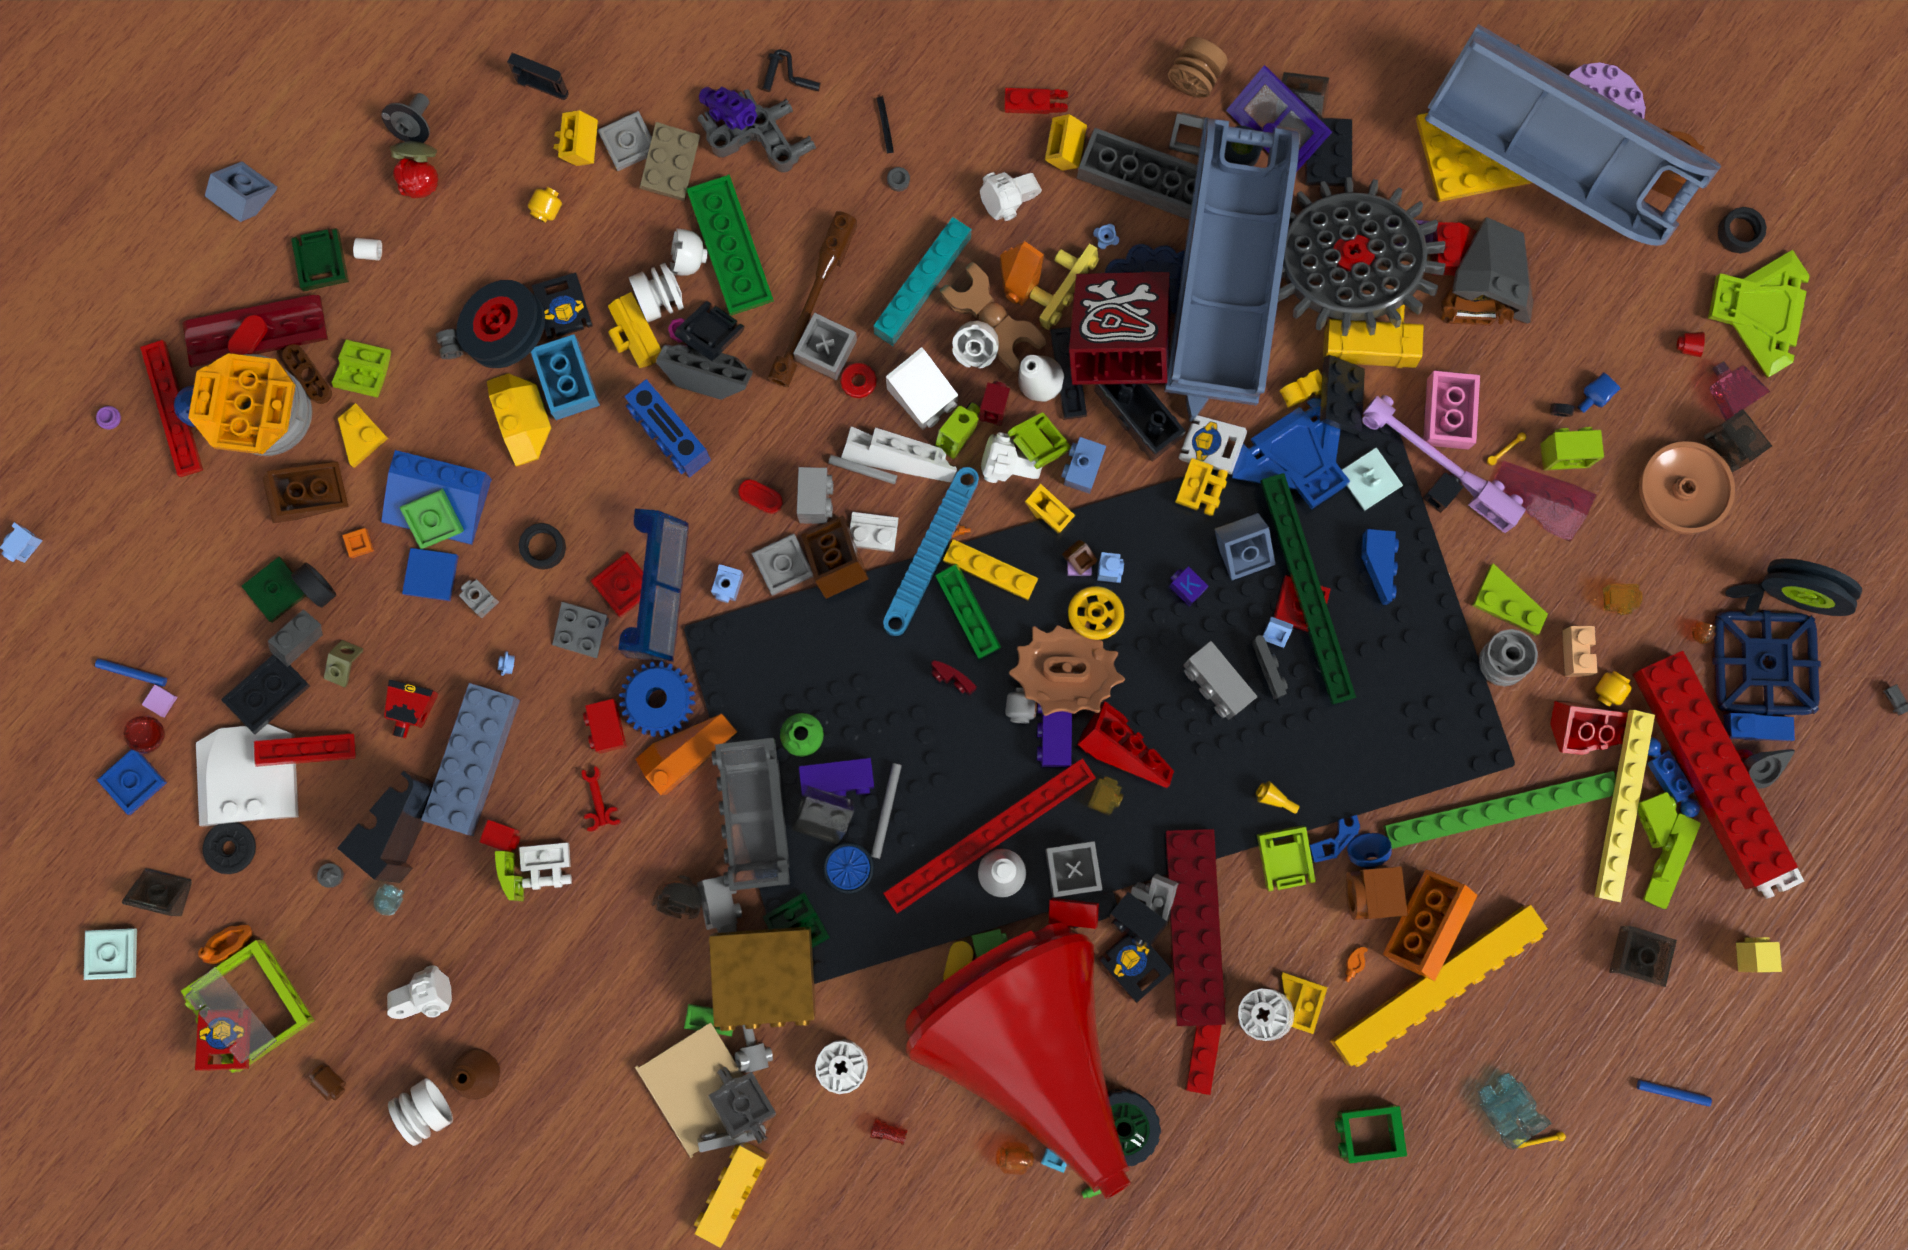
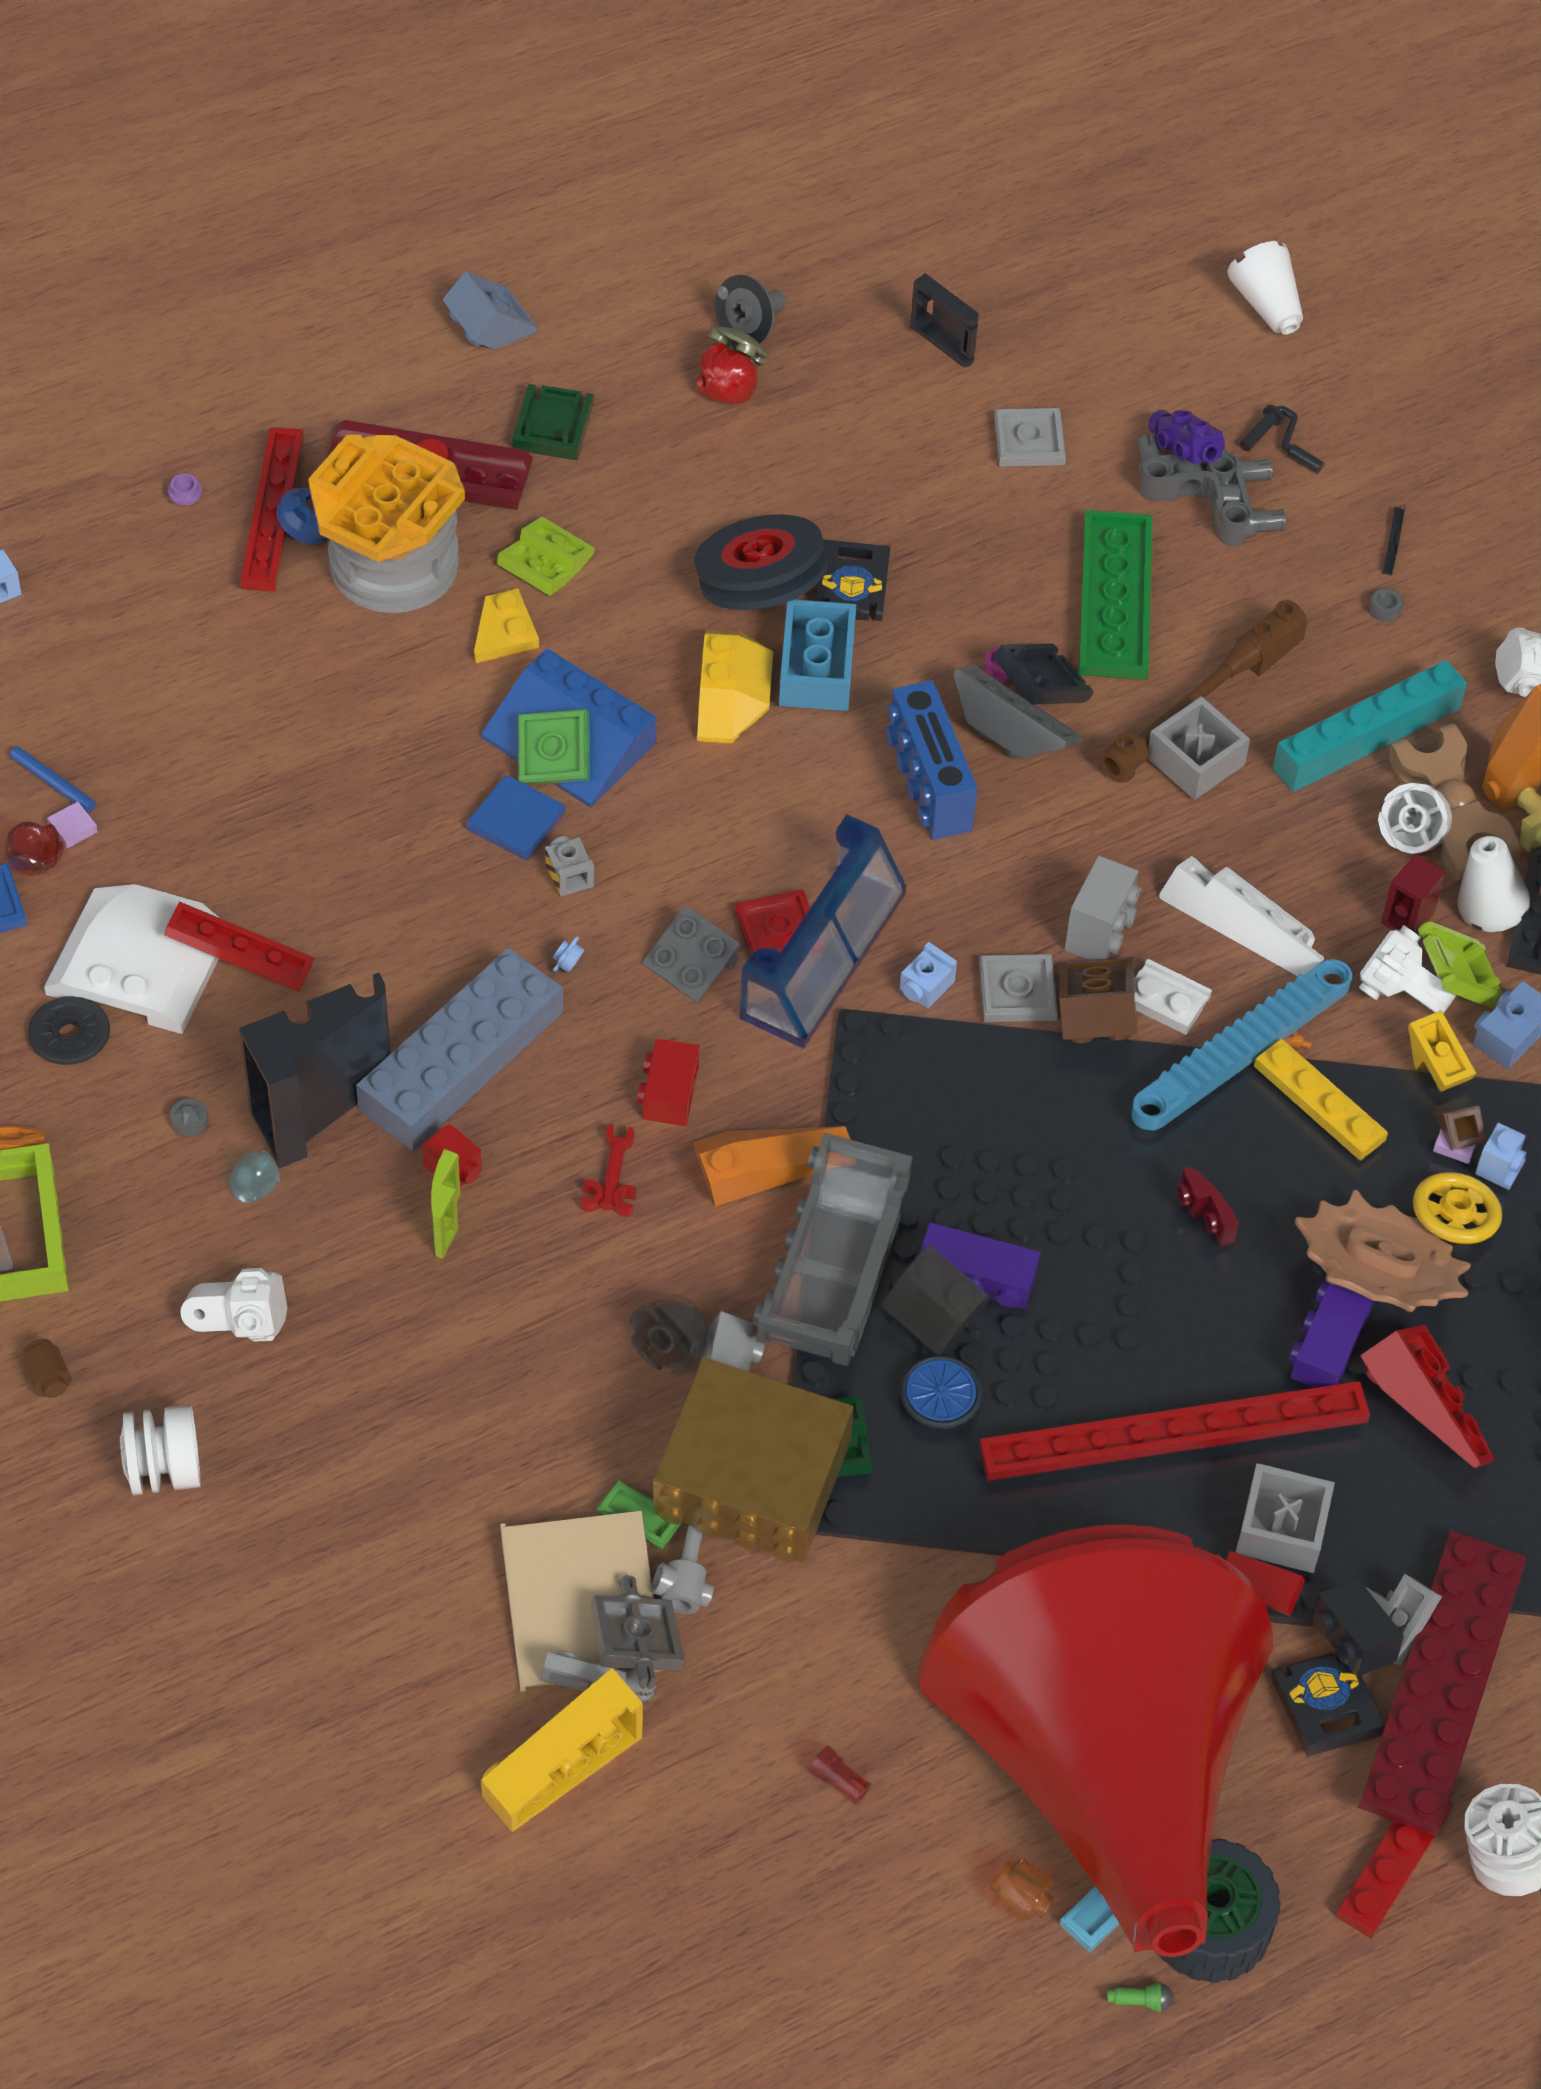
camera: 25 degrees right, 25 degrees down
(265, 693) = (221, 863): black plate -> none
(274, 590) = (297, 757): dark green plate -> none
(295, 638) = (297, 812): dark grey brick -> none
(304, 491) = (396, 658): reddish brown slope -> none
(313, 585) = (355, 761): black tyre -> none
(316, 378) = (479, 545): reddish brown beam -> none
(339, 664) = (337, 871): olive bracket -> none
(358, 543) = (437, 746): orange tile -> none
(367, 249) = (623, 429): white piece -> none
(408, 706) = (408, 952): red torso -> none
(449, 344) = (678, 568): dark grey wheel -> none
(475, 1074) = (259, 1440): reddish brown cone -> none
(533, 530) = (688, 816): black tyre -> none
(544, 204) = (883, 462): yellow head -> none
(545, 857) = (500, 1210): white plate -> none
(577, 138) = (964, 404): yellow brick -> none
(632, 322) = (941, 632): yellow piece -> none
(656, 292) = (990, 602): white wheel -> none
(669, 161) = (1076, 475): dark tan plate -> none
(675, 707) = (756, 1102): blue gear -> none
(687, 253) = (1053, 578): white cylinder -> none
(760, 496) = (1023, 896): red tile -> none
(801, 747) = (949, 1210): bright green piece -> none
(854, 370) = (1228, 798): red piece -> none
(855, 1061) = (810, 1665): white wheel -> none
(862, 469) = (1186, 917): light grey bar -> none
(886, 810) = (1030, 1342): light grey bar -> none
(921, 389) = (1313, 843): white slope -> none
(958, 429) = (1344, 912): lime torso -> none
(968, 611) = (1265, 1134): green plate -> none
(1001, 873) = (1173, 1482): white cone -> none
(1020, 708) = (1294, 1279): light grey head -> none
(1105, 796) = (1373, 1446): clear yellow brick -> none

